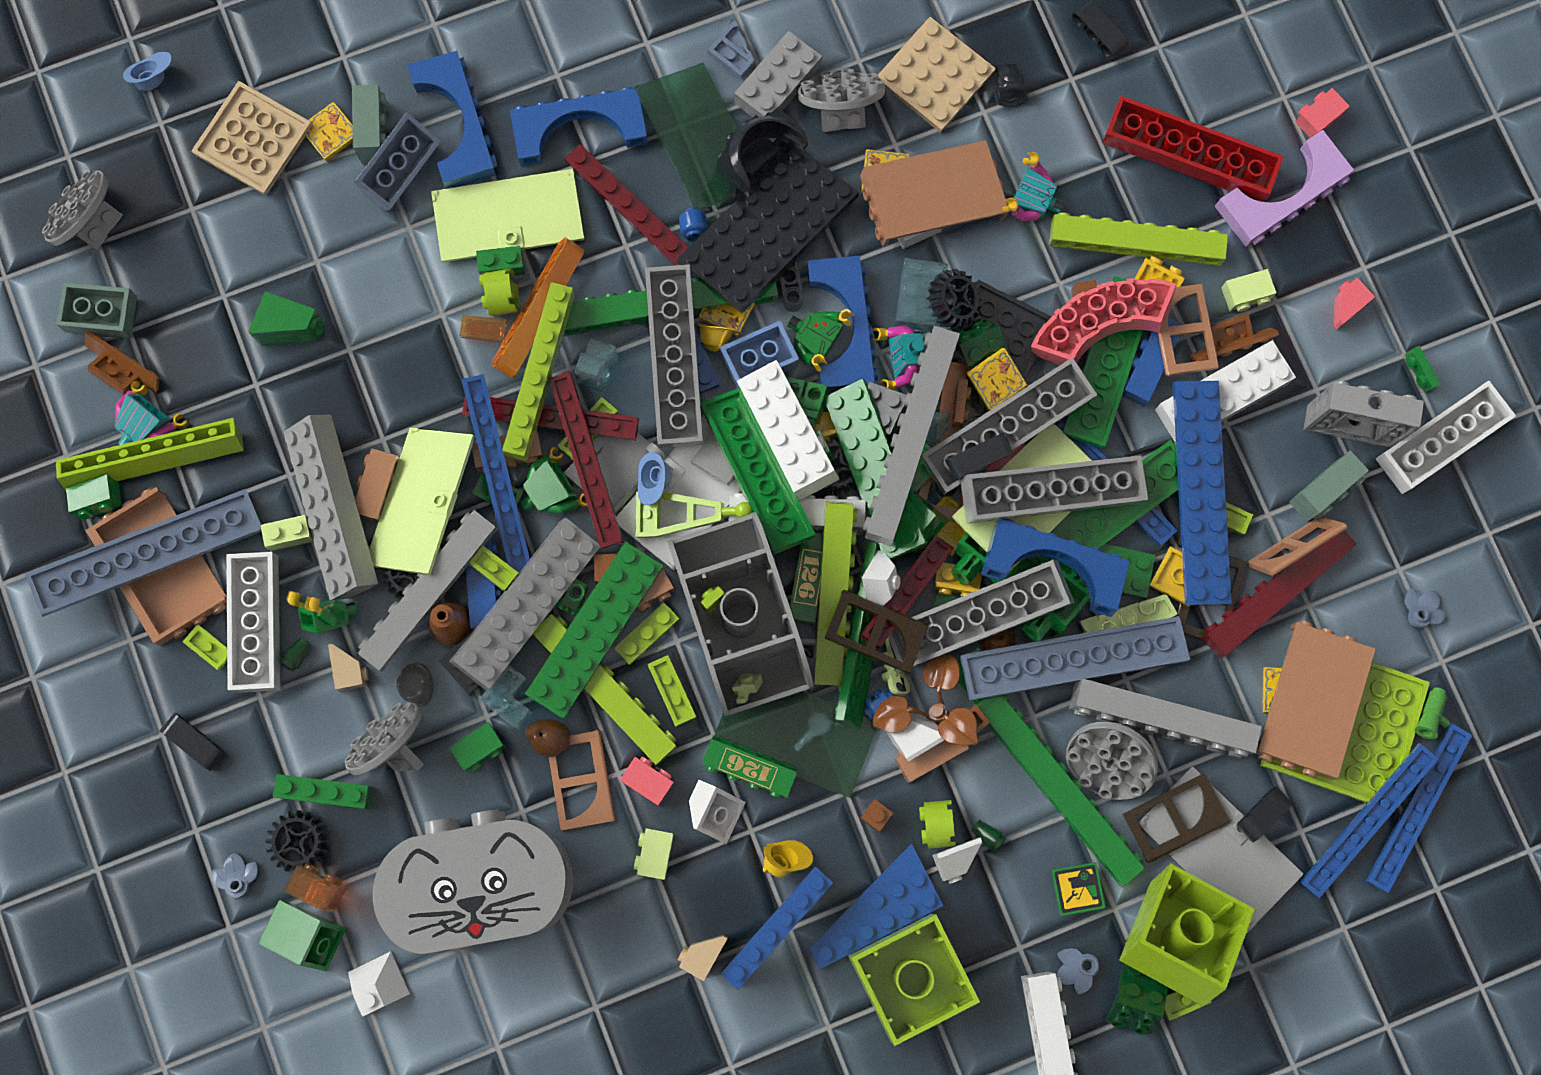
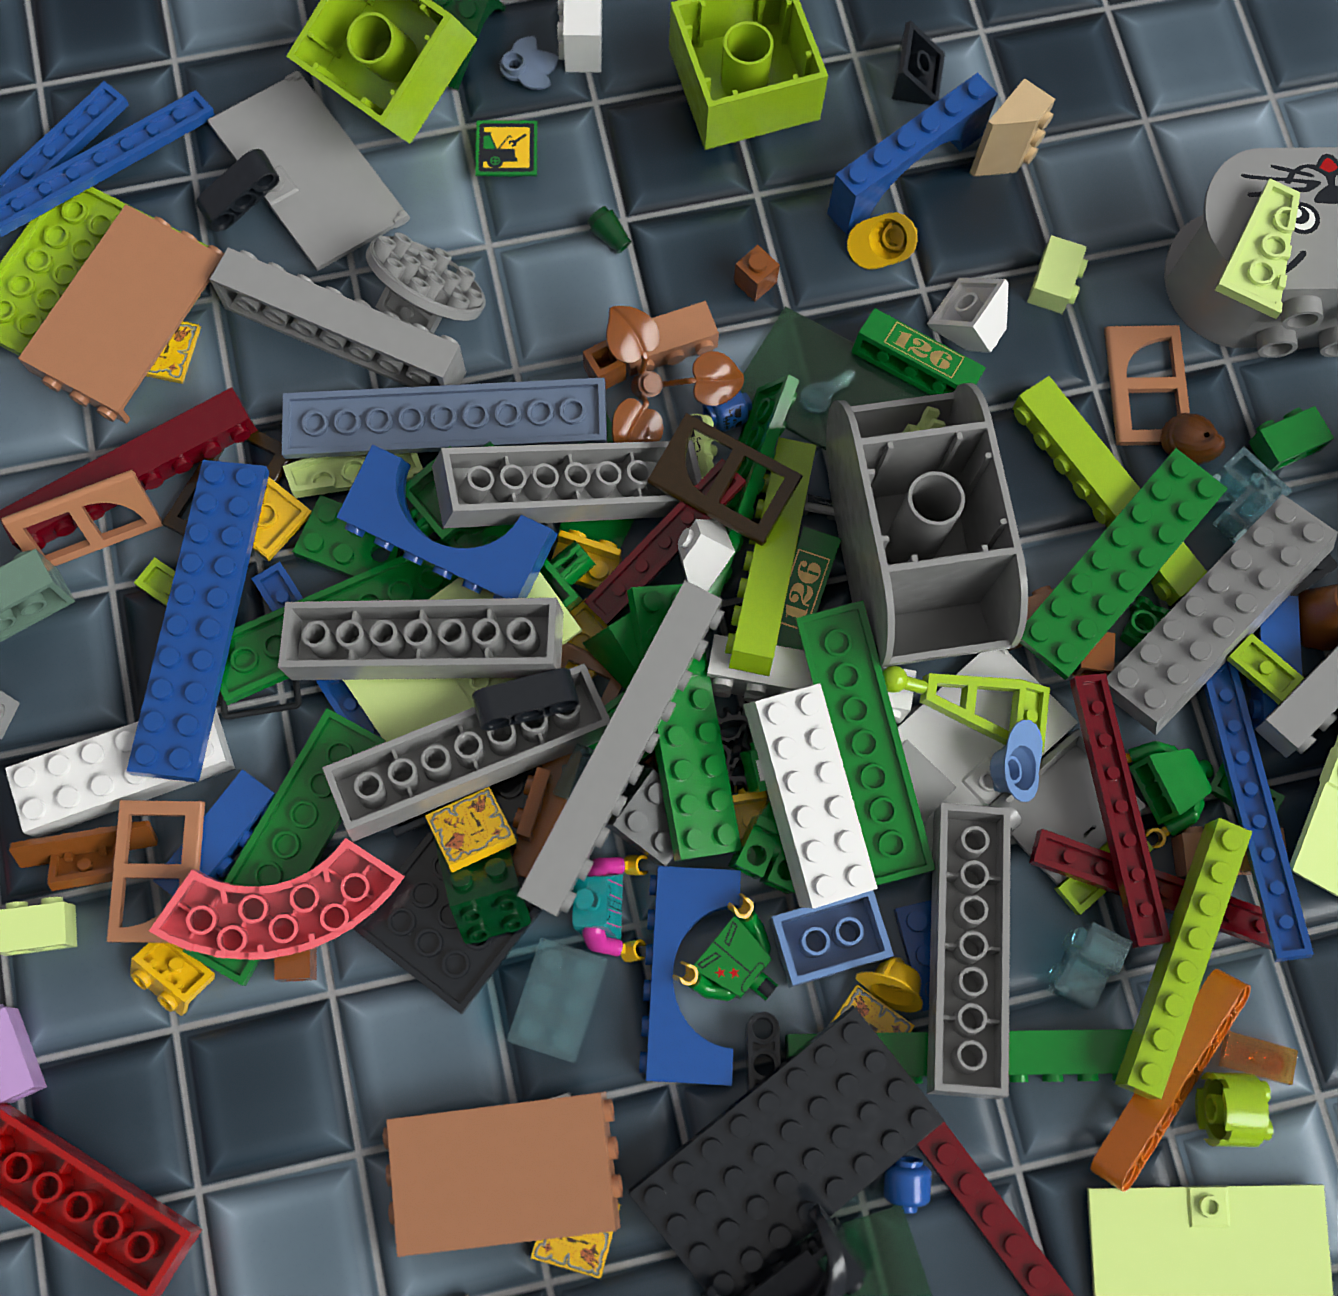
camera: 170 degrees left, 5 degrees down
(501, 259) = (1228, 1165): green brick -> none
(525, 837) = (1261, 255): none -> yellowish green wing
(646, 633) = (1053, 552): lime plate -> none
(647, 781) = (1061, 360): coral brick -> none
(671, 691) = (1019, 478): lime plate -> none
(711, 599) = (967, 529): lime plate -> none
(776, 1016) = (918, 68): none -> black slope
(889, 903) = (761, 172): blue wing -> none
(917, 738) = (679, 349): white slope -> none
(938, 824) = (677, 245): lime brick -> none
(947, 299) = (500, 975): black gear -> none
(956, 860) = (658, 206): white slope -> none
(1034, 193) = (338, 1149): torso -> none
(1060, 790) = (499, 263): green brick -> none
(1138, 239) = (186, 1042): lime brick -> none
(1211, 818) = (310, 200): dark brown window -> none

